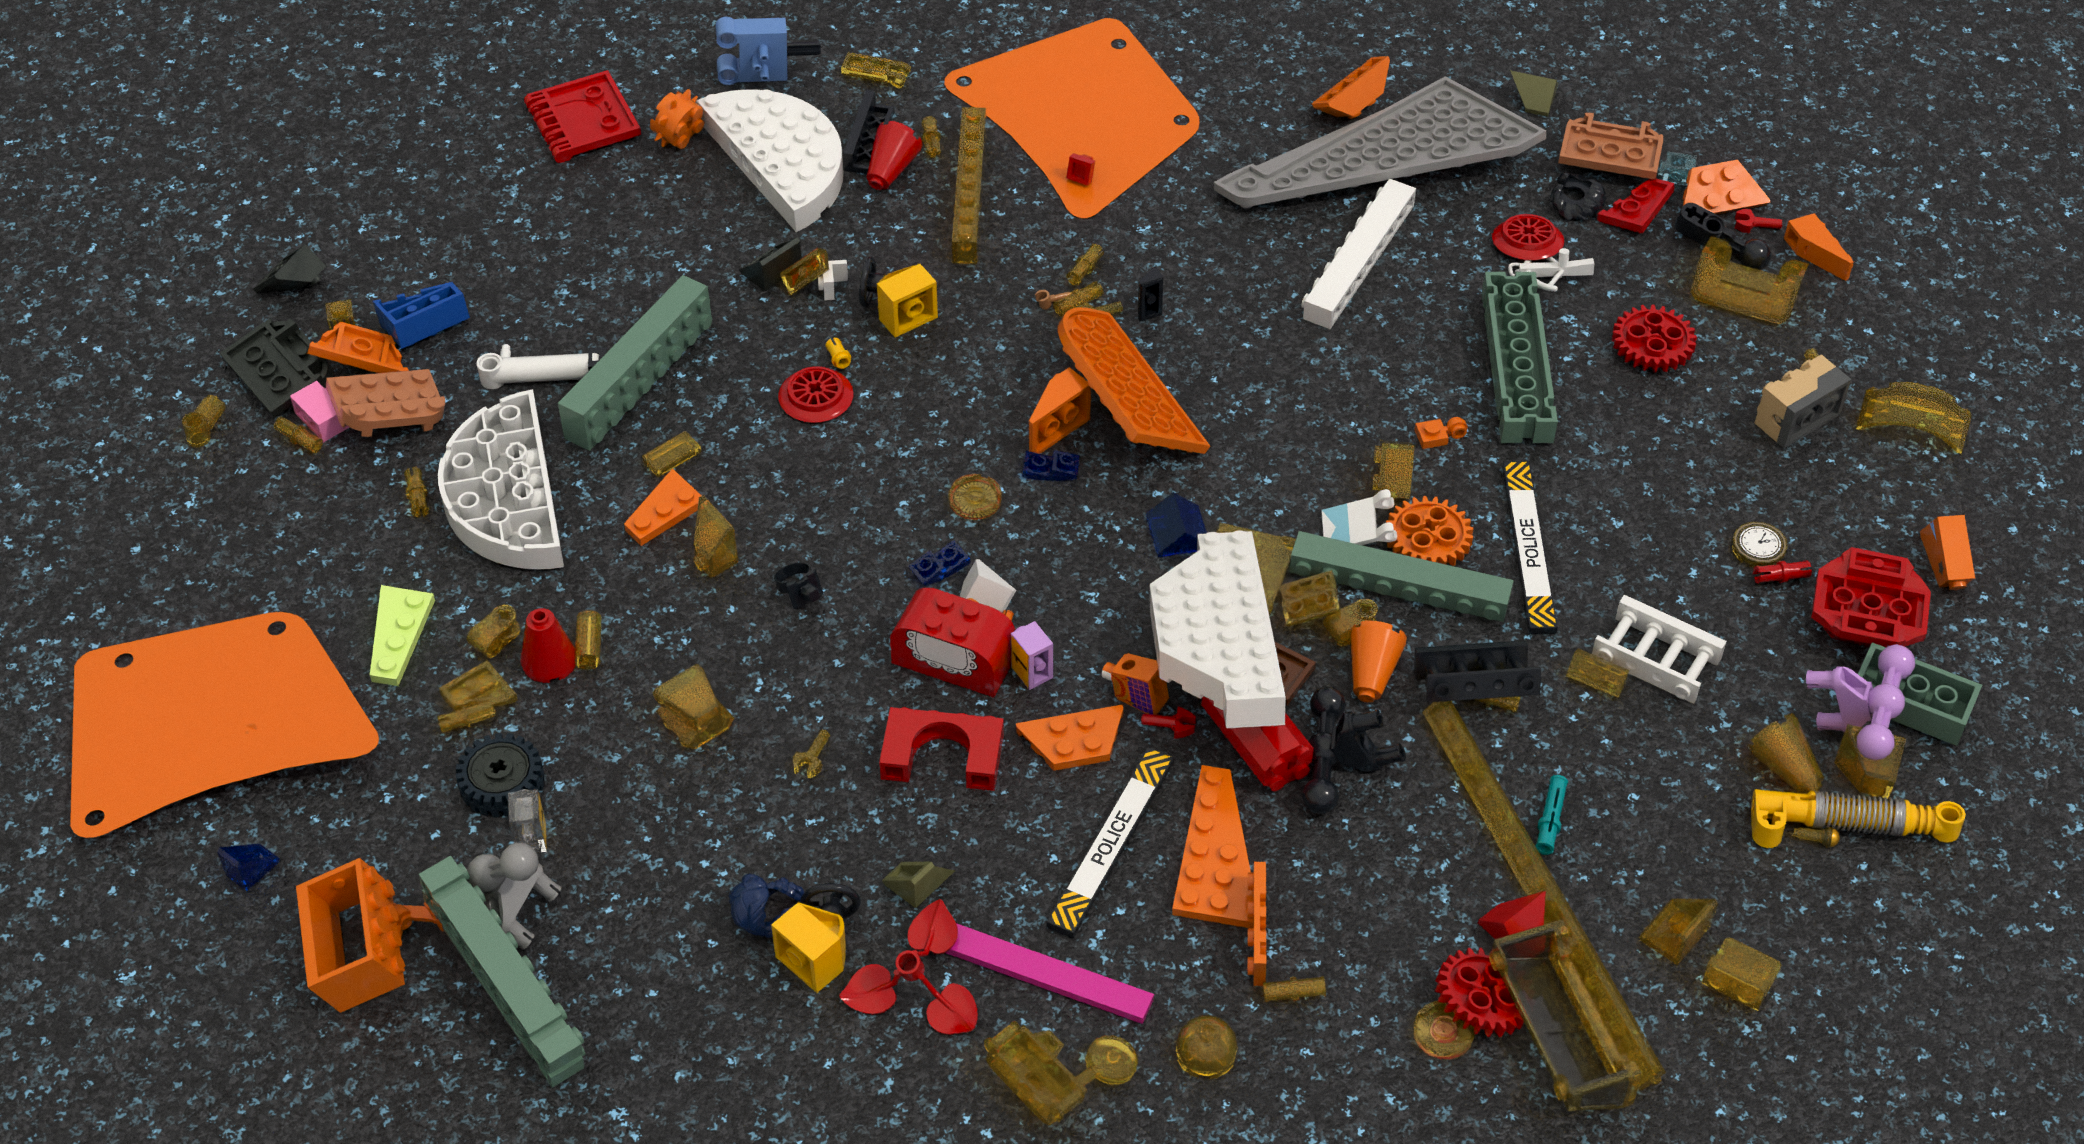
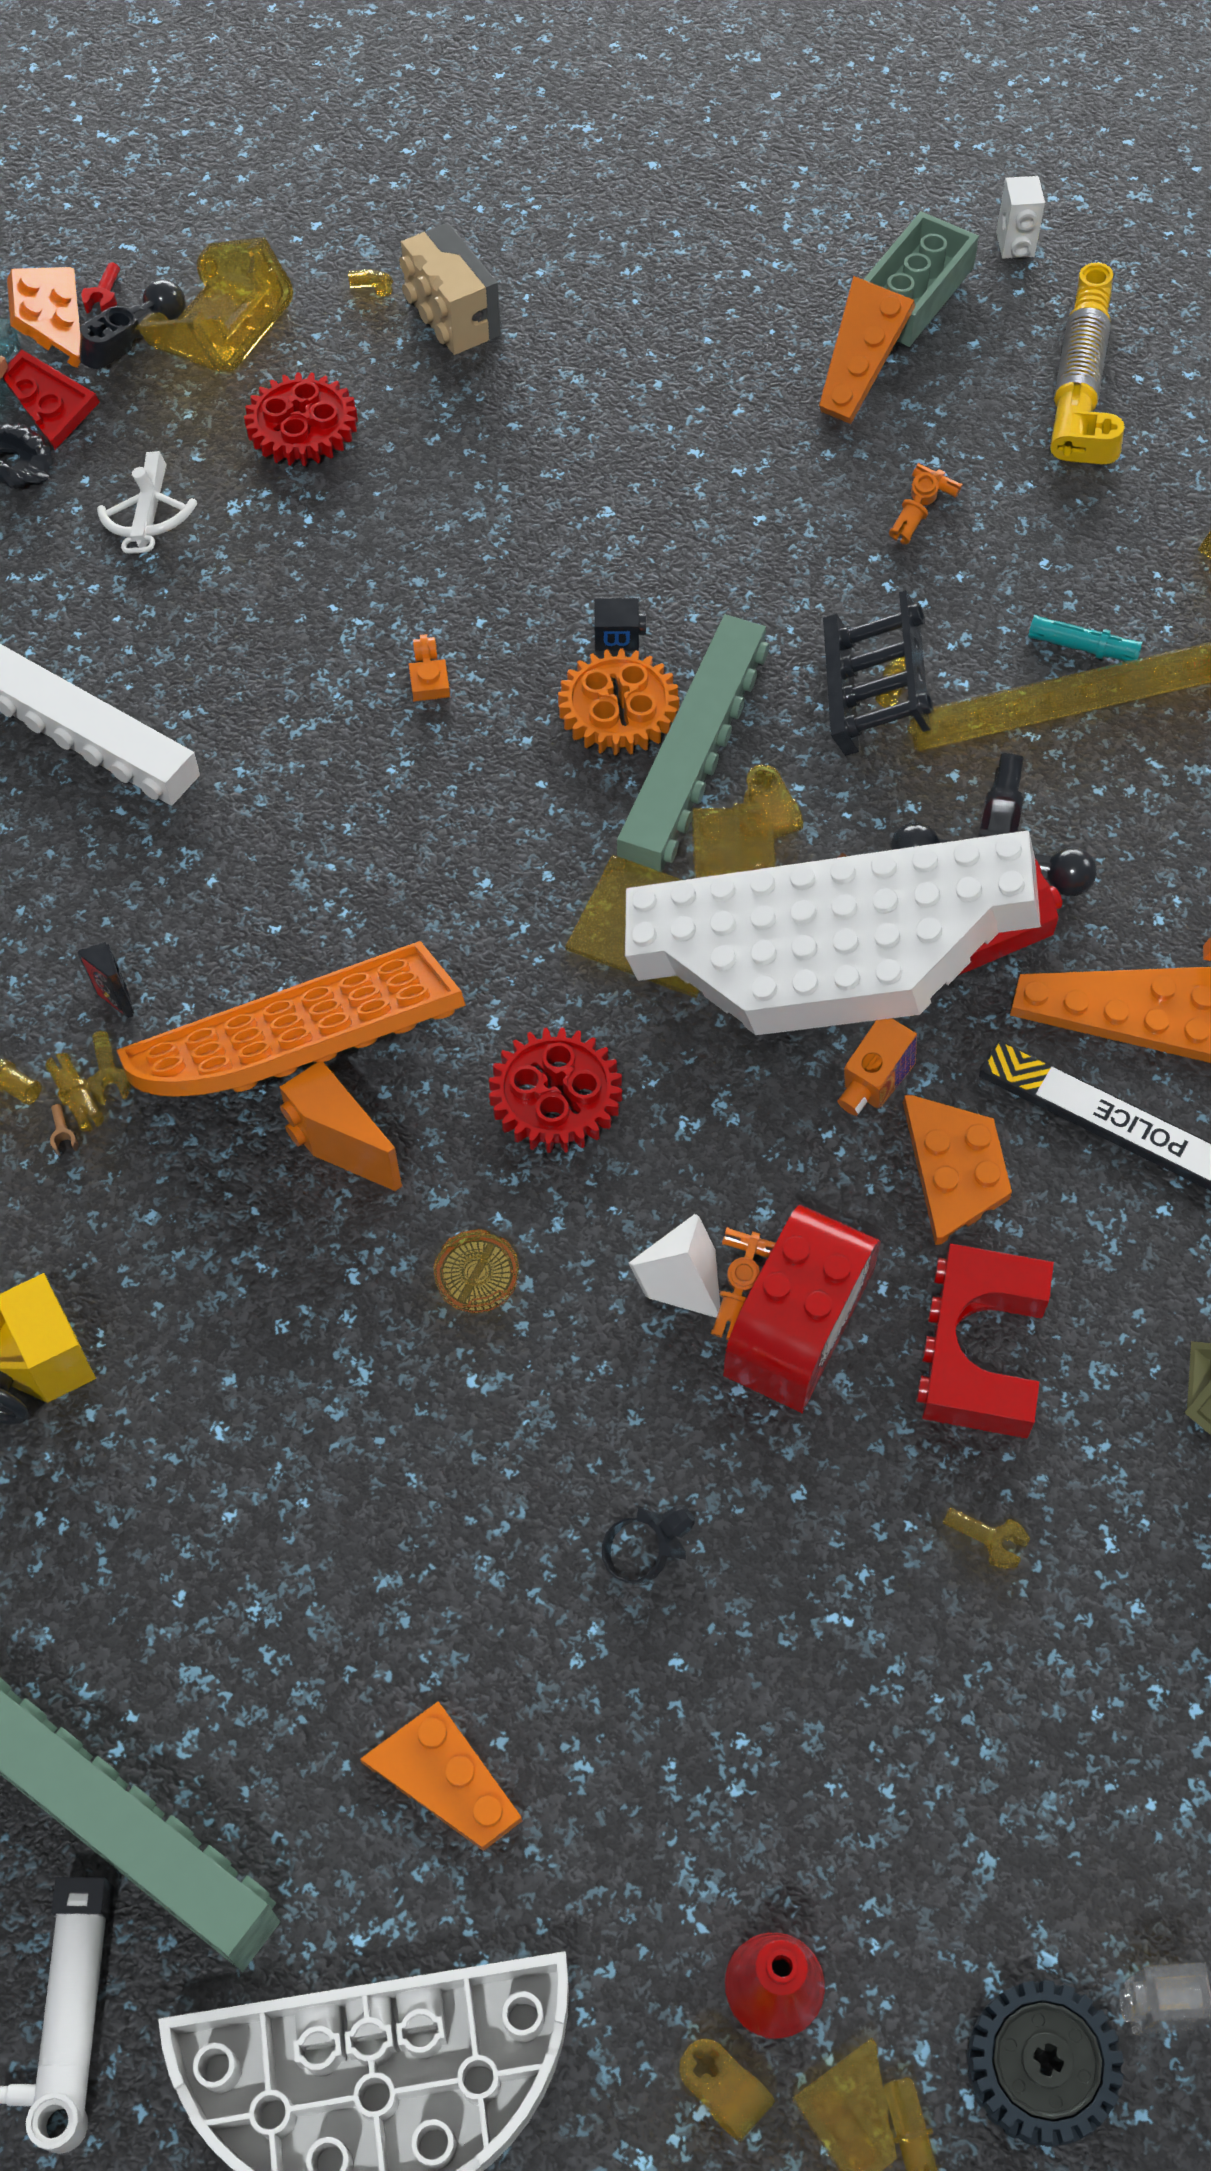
camera: 85 degrees left, 10 degrees up
(588, 639) = (748, 1908): clear yellow piece -> none
(671, 453) = (318, 1763): clear yellow tile -> none
(692, 708) = (915, 1717): clear yellow piece -> none
(713, 540) = (553, 1681): clear yellow slope -> none
(815, 407) = (238, 1545): red piece -> none
(840, 357) = (128, 1466): yellow pin -> none
(938, 566) = (614, 1329): clear blue slope -> none
(1031, 655) = (835, 1189): lavender brick -> none
(1050, 468) = (428, 1158): clear blue slope -> none
(1104, 520) = (583, 1070): none -> red gear
(1173, 722) = (930, 1041): red bar -> none
(1175, 525) = (575, 999): clear blue slope -> none
(1357, 521) = (595, 784): white flag -> none
(1374, 657) = (848, 784): orange cone -> none
(1395, 468) = (506, 711): clear yellow brick -> none
(1499, 527) = (618, 624): none -> black brick
(1519, 358) = (315, 556): sand green brick -> none
(1528, 237) = (98, 524): red piece -> none
(1529, 548) = (659, 602): tile -> none
(1597, 672) = (867, 559): clear yellow plate -> none
(1668, 629) = (814, 471): white fence -> none
(1670, 699) = (924, 492): none -> orange pin
(1759, 544) = (662, 380): tile -> none
(1782, 571) = (711, 365): red pin -> none
(1788, 754) = (998, 401): clear yellow cone -> none
(1814, 243) = (167, 236): orange slope -> none
(1815, 654) = (864, 341): none -> orange wing
(1828, 836) = (1107, 398): clear yellow piece -> none
(1861, 701) = (955, 304): lavender connector -> none
(1866, 774) = (1018, 331): clear yellow slope -> none
(1871, 599) = (783, 285): red piece -> none
(1916, 407) = (480, 194): clear yellow windscreen -> none
(1949, 551) = (699, 211): orange slope -> none
(2009, 762) = (1020, 217): none -> white brick

